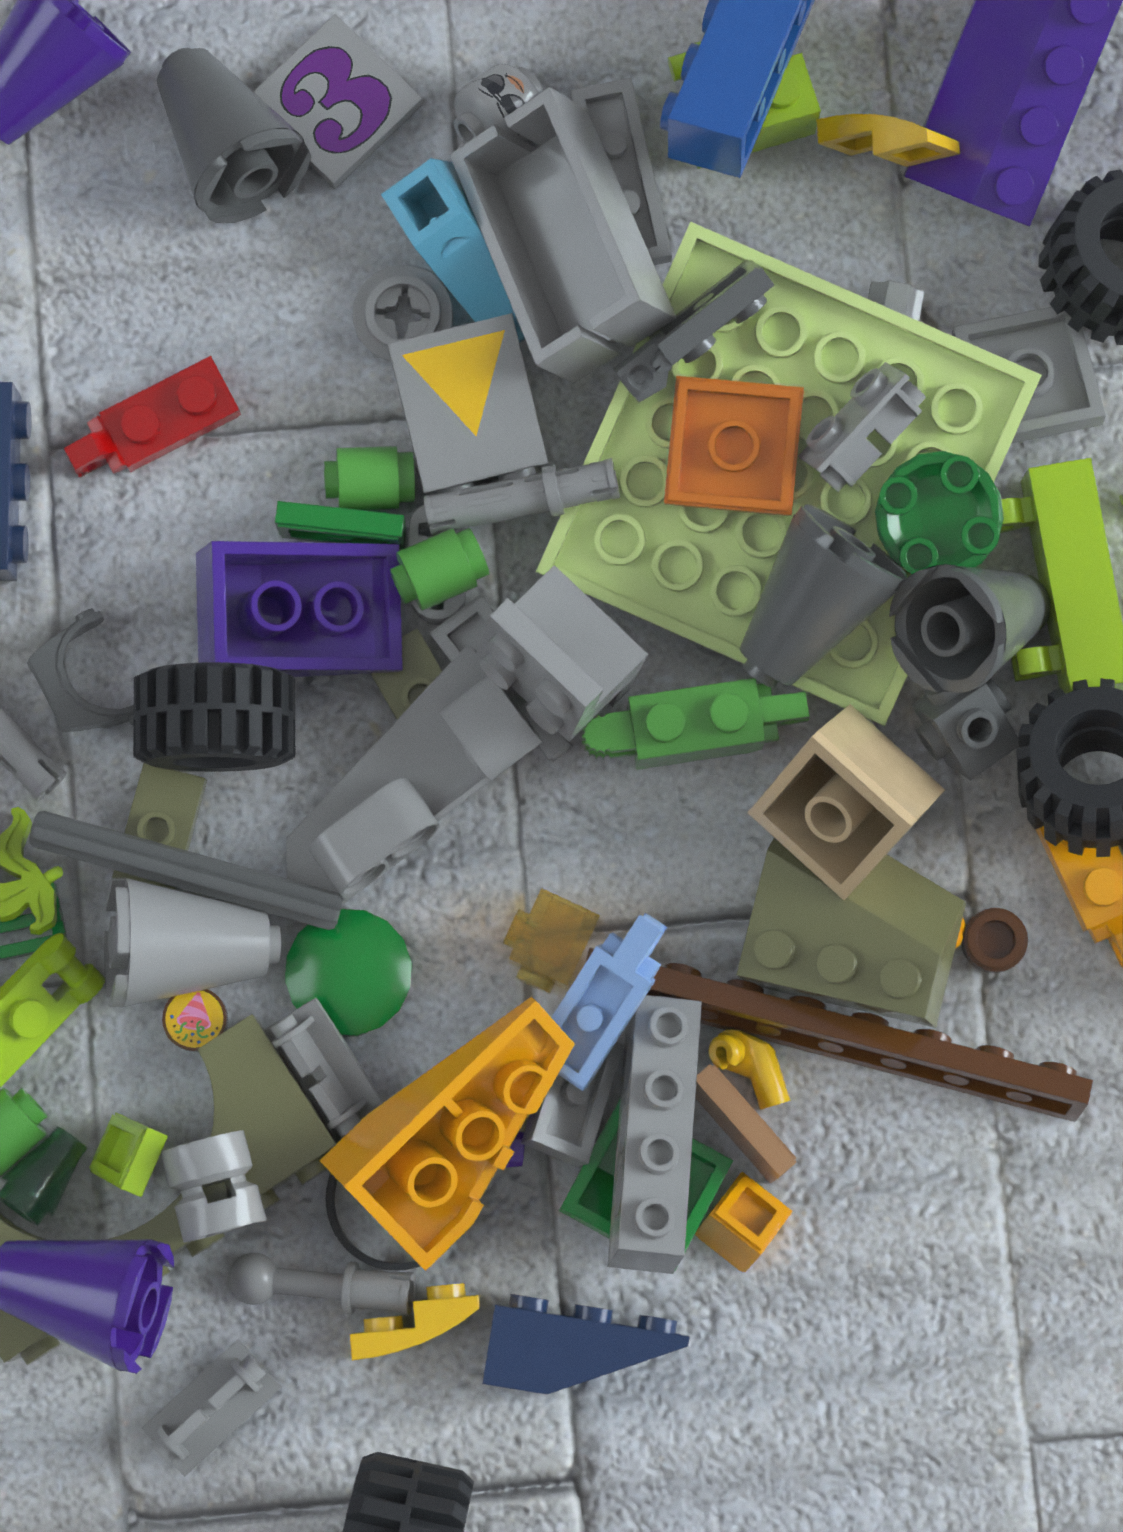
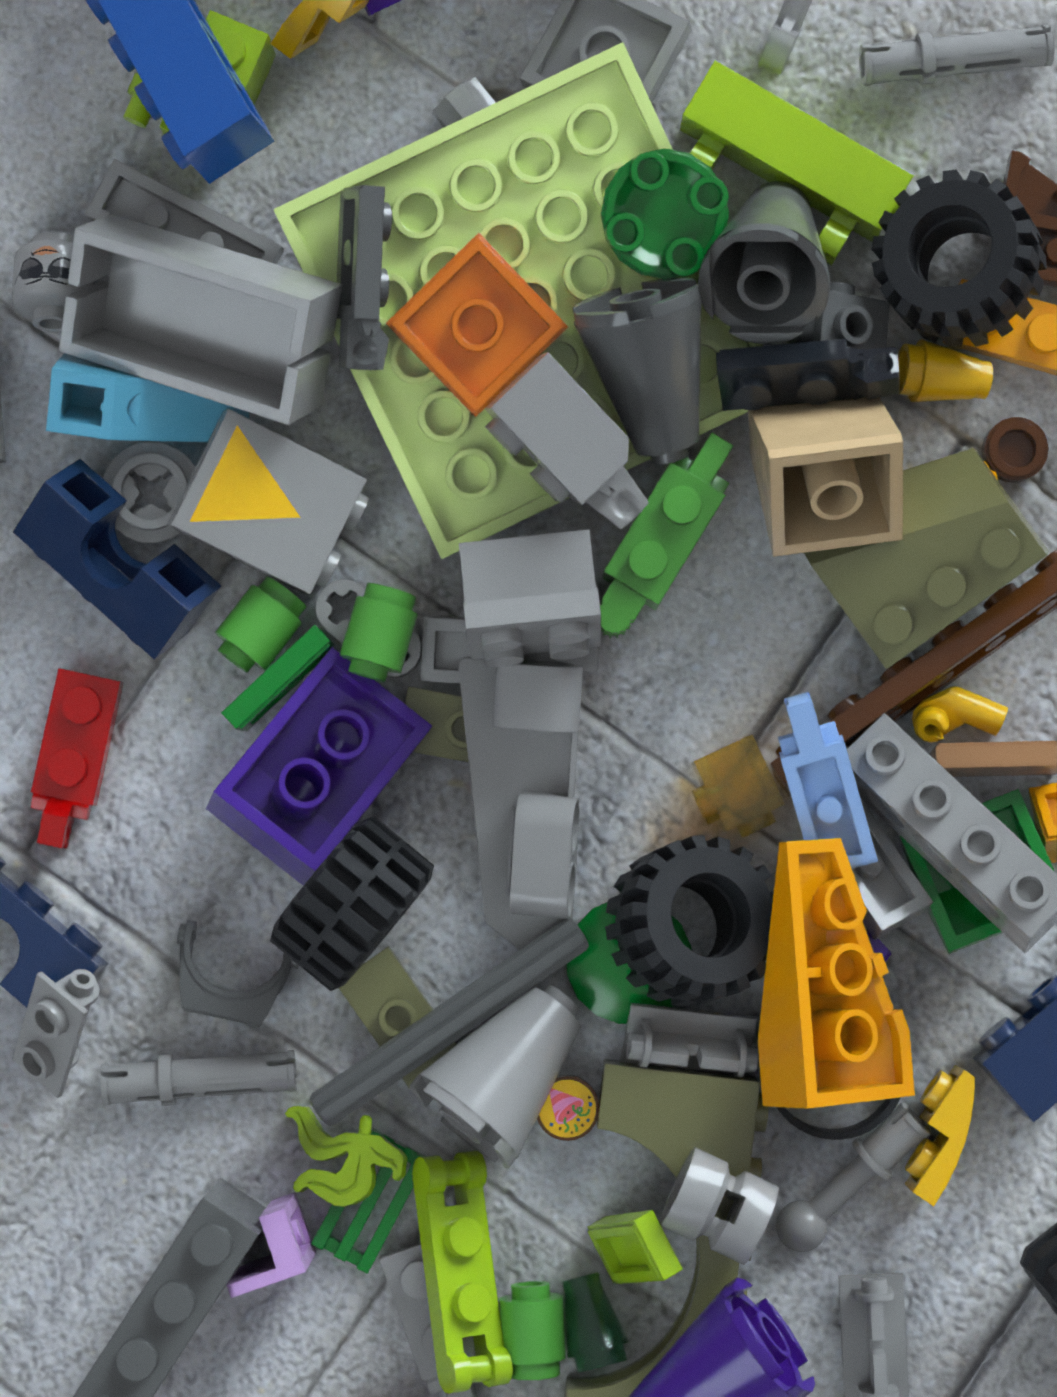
camera: 40 degrees left, 5 degrees up
(323, 280) = (75, 534): none -> dark blue arch
(369, 979) = (646, 928): none -> black tyre
(523, 496) = (383, 510): light grey pin -> none
(702, 582) = (569, 439): none -> light grey hinge
(879, 402) = (539, 184): light grey hinge -> none
(907, 722) = (804, 374): none -> black hinge
(1002, 832) = (941, 373): none -> yellow cone

